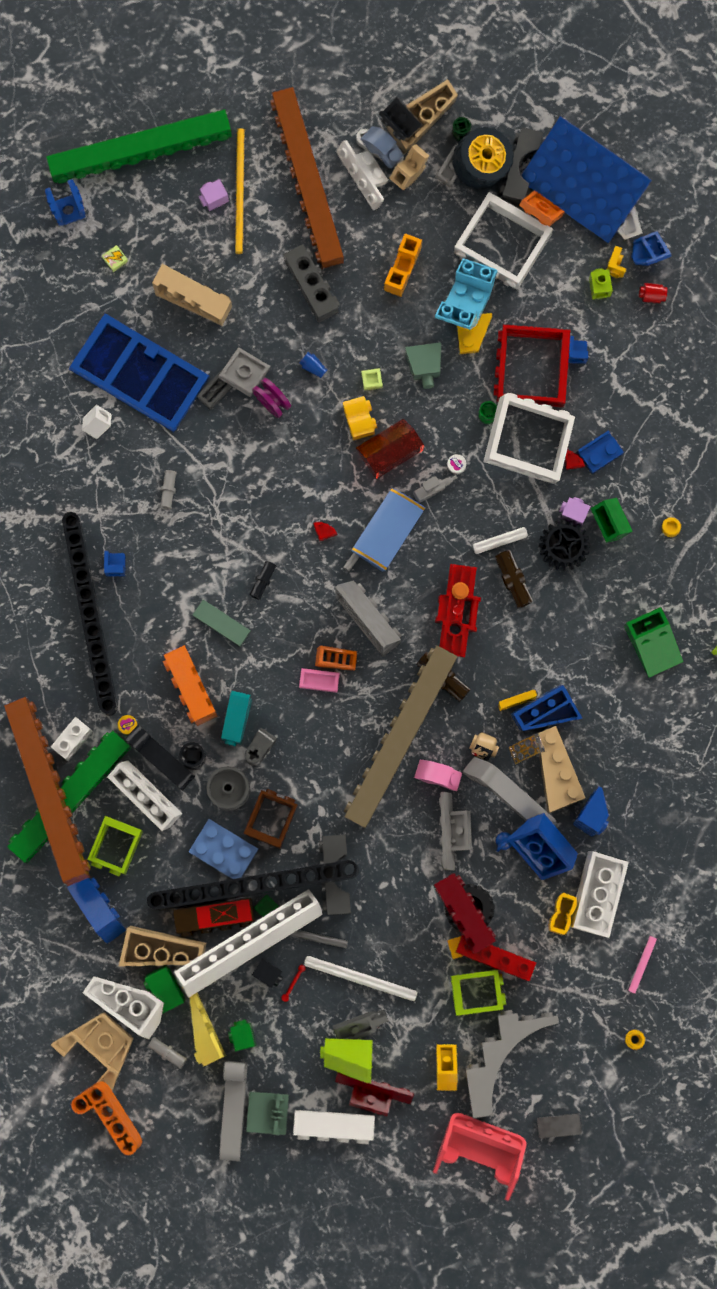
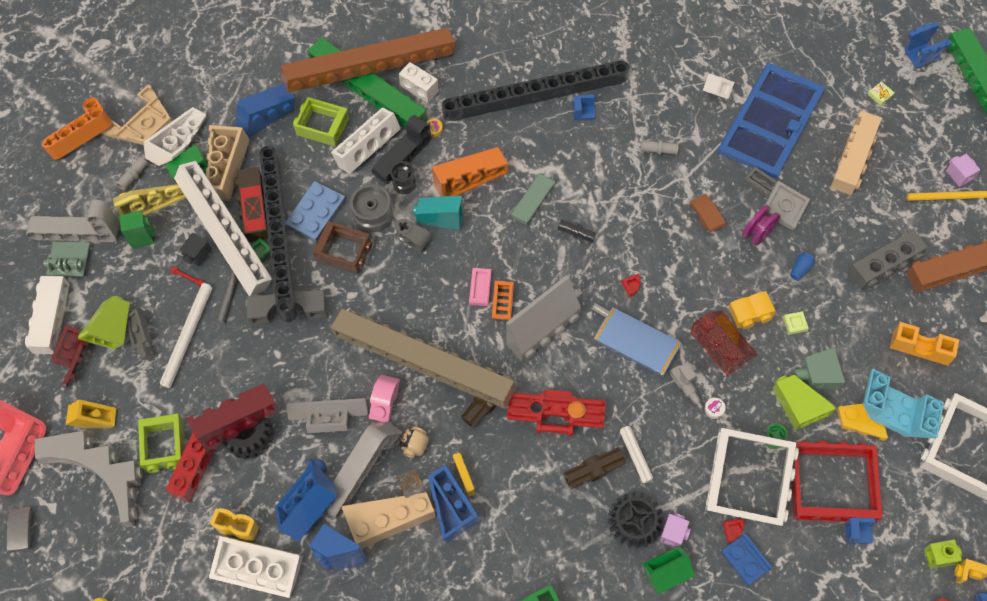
camera: 90 degrees right, 15 degrees down
(248, 449) = (708, 213): none -> dark orange slope
(455, 385) = (801, 402): none -> lime slope

